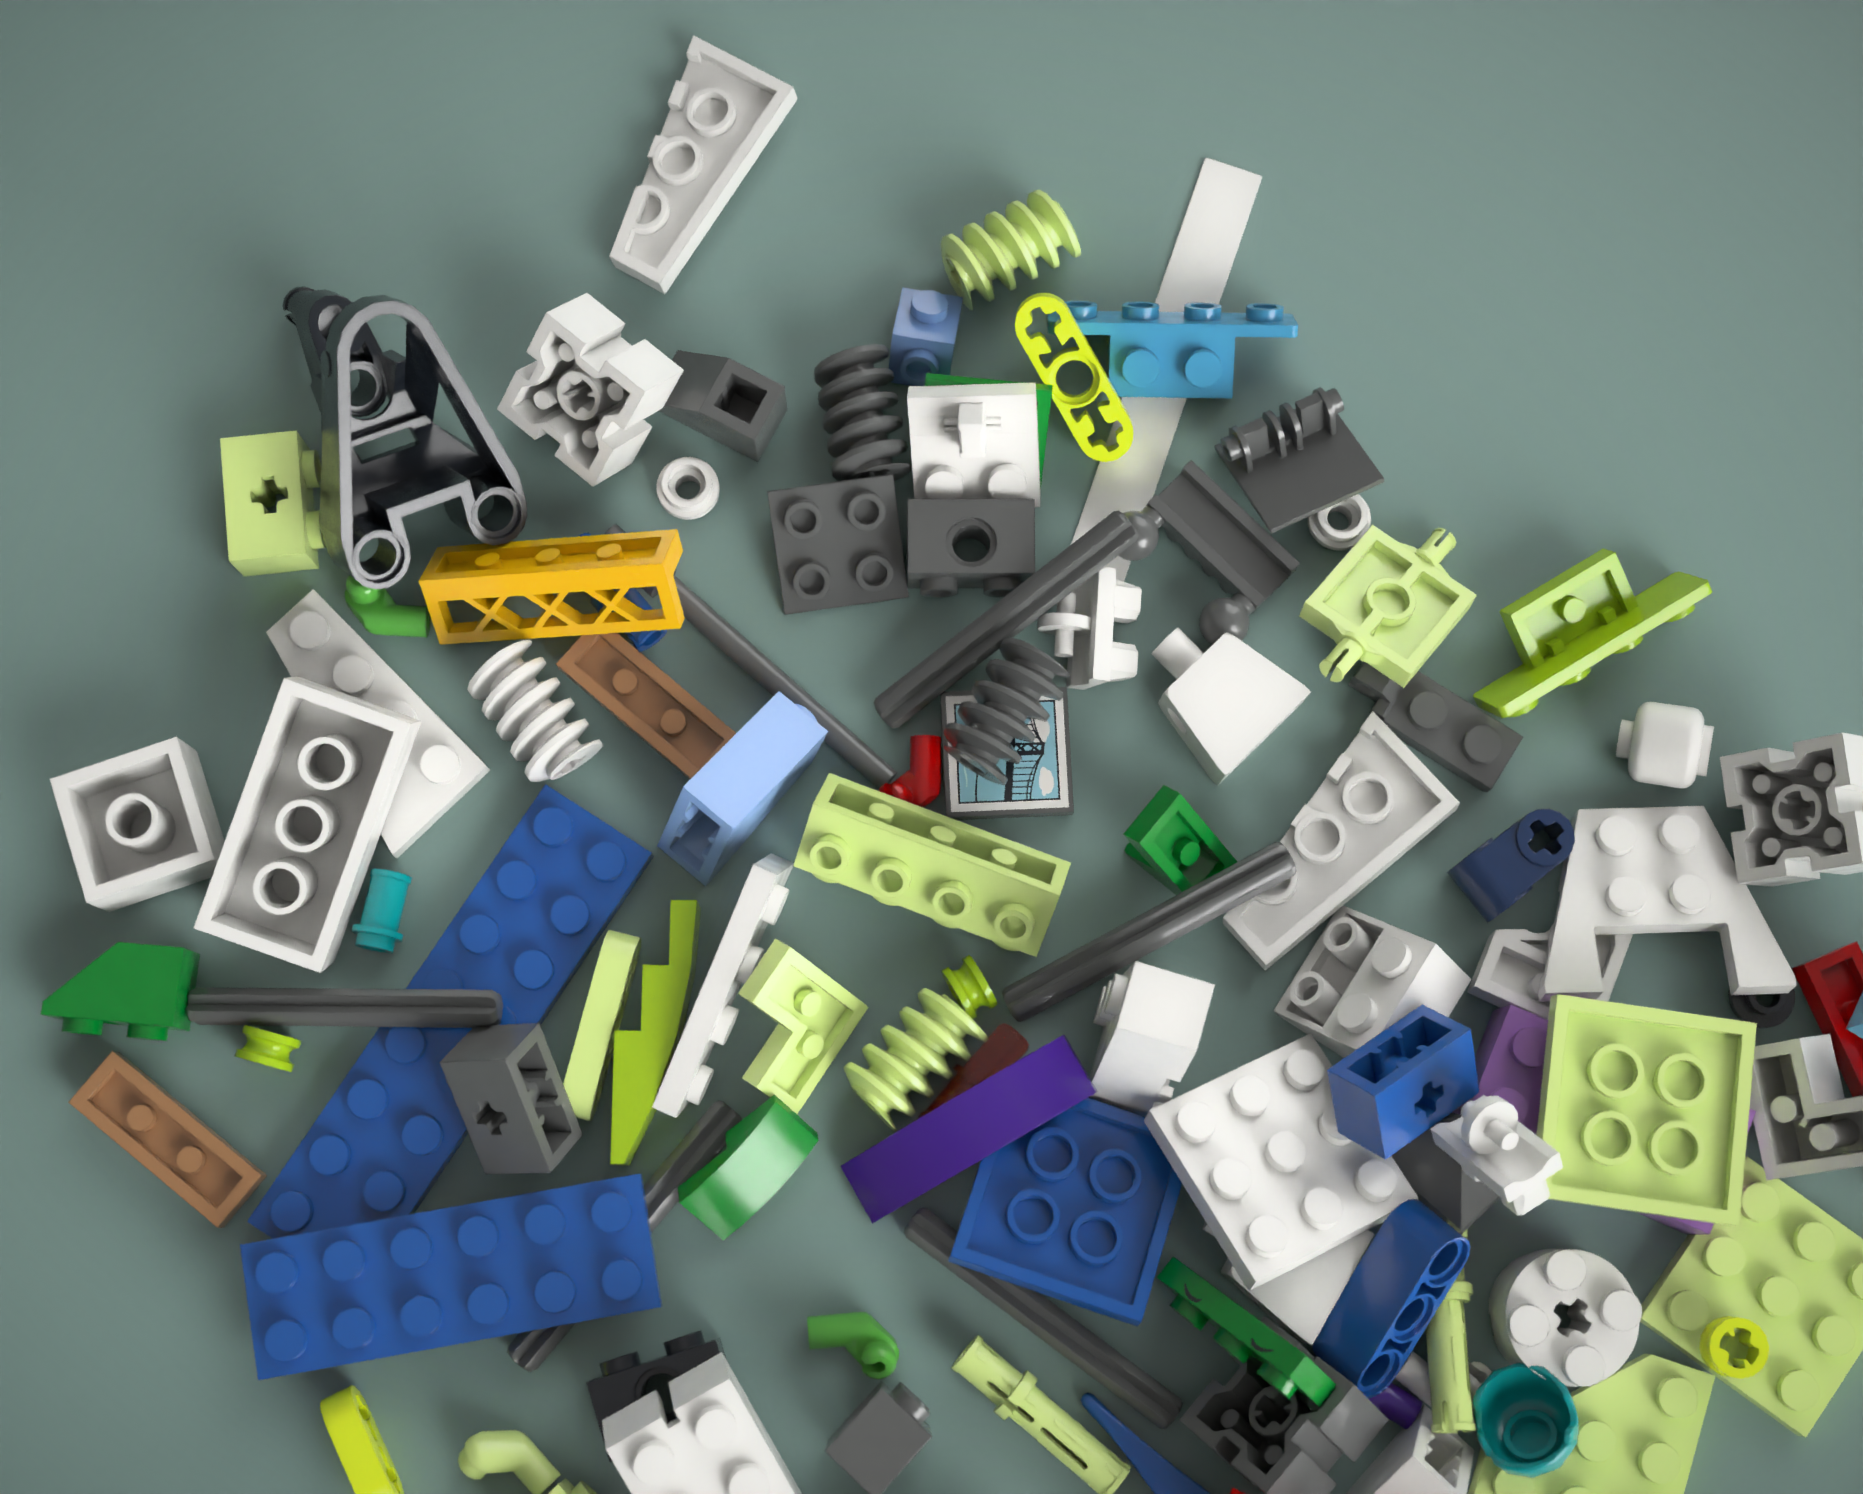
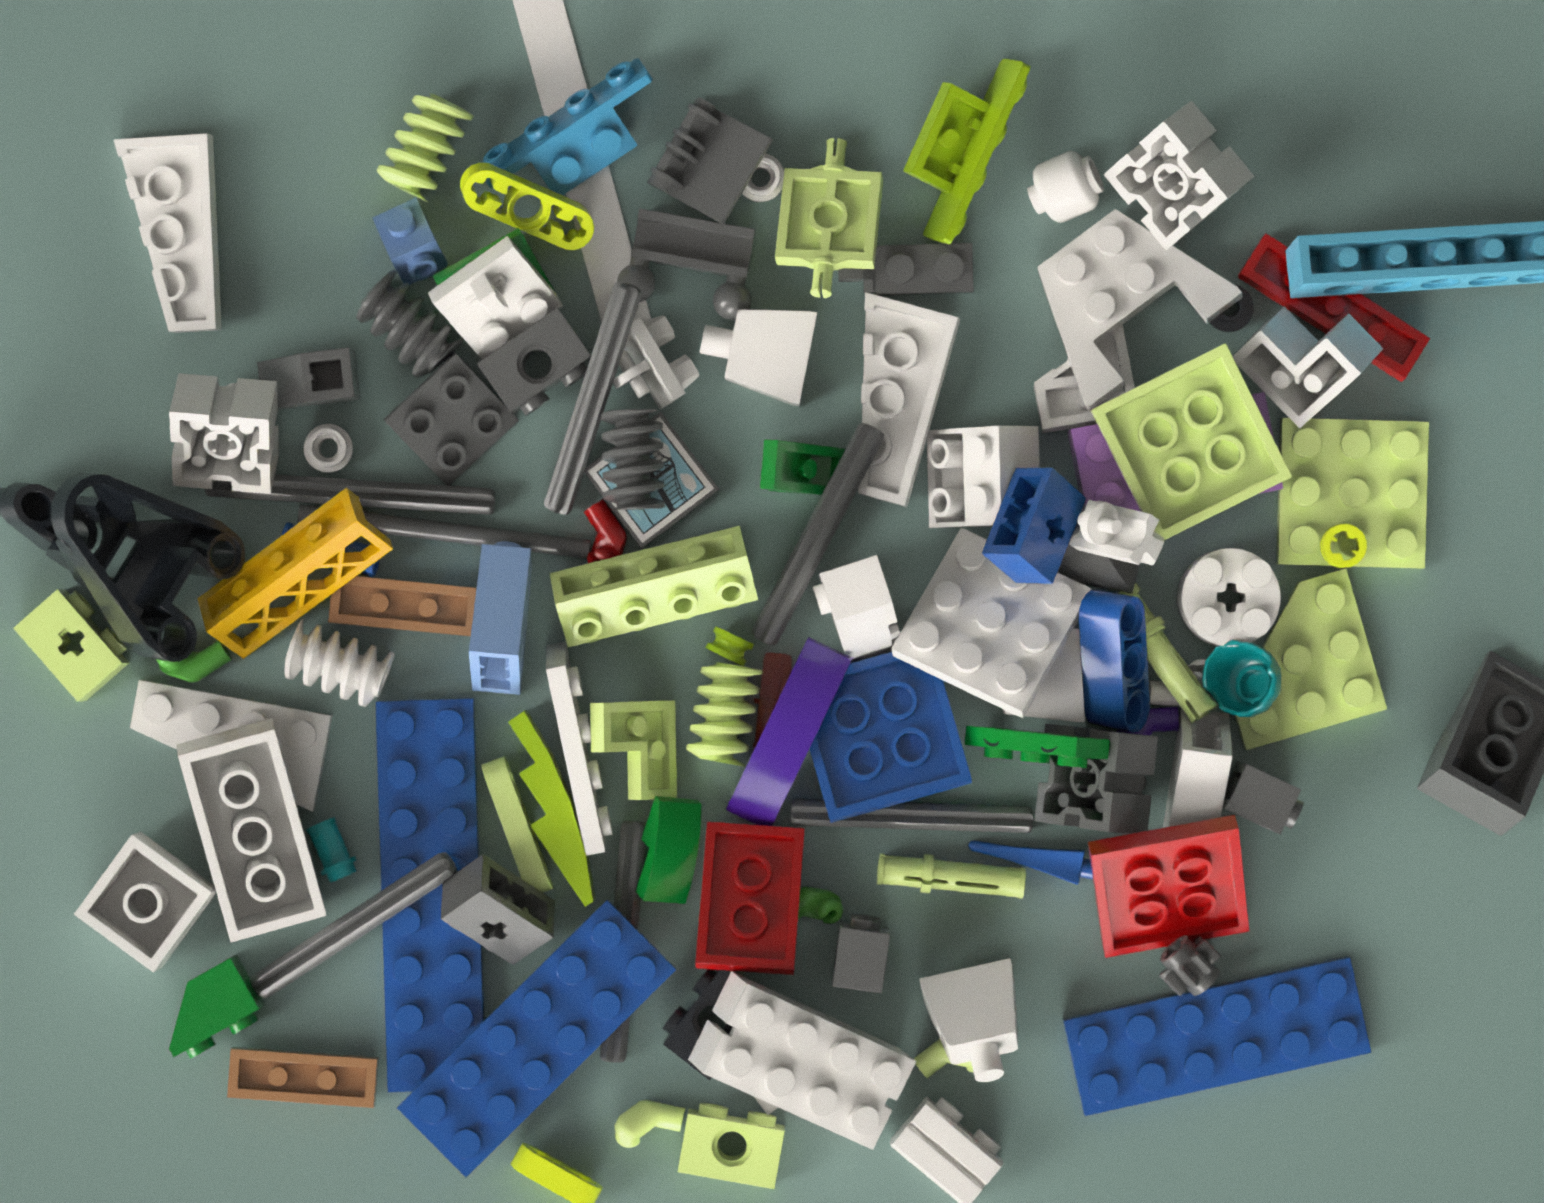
camera: 30 degrees left, 10 degrees up
(267, 1048) = (323, 981): lime bush -> none
(695, 563) = (370, 493): none -> dark grey axle
(798, 1285) = (750, 898): none -> red plate
(1507, 866) = (1013, 339): dark blue piece -> none

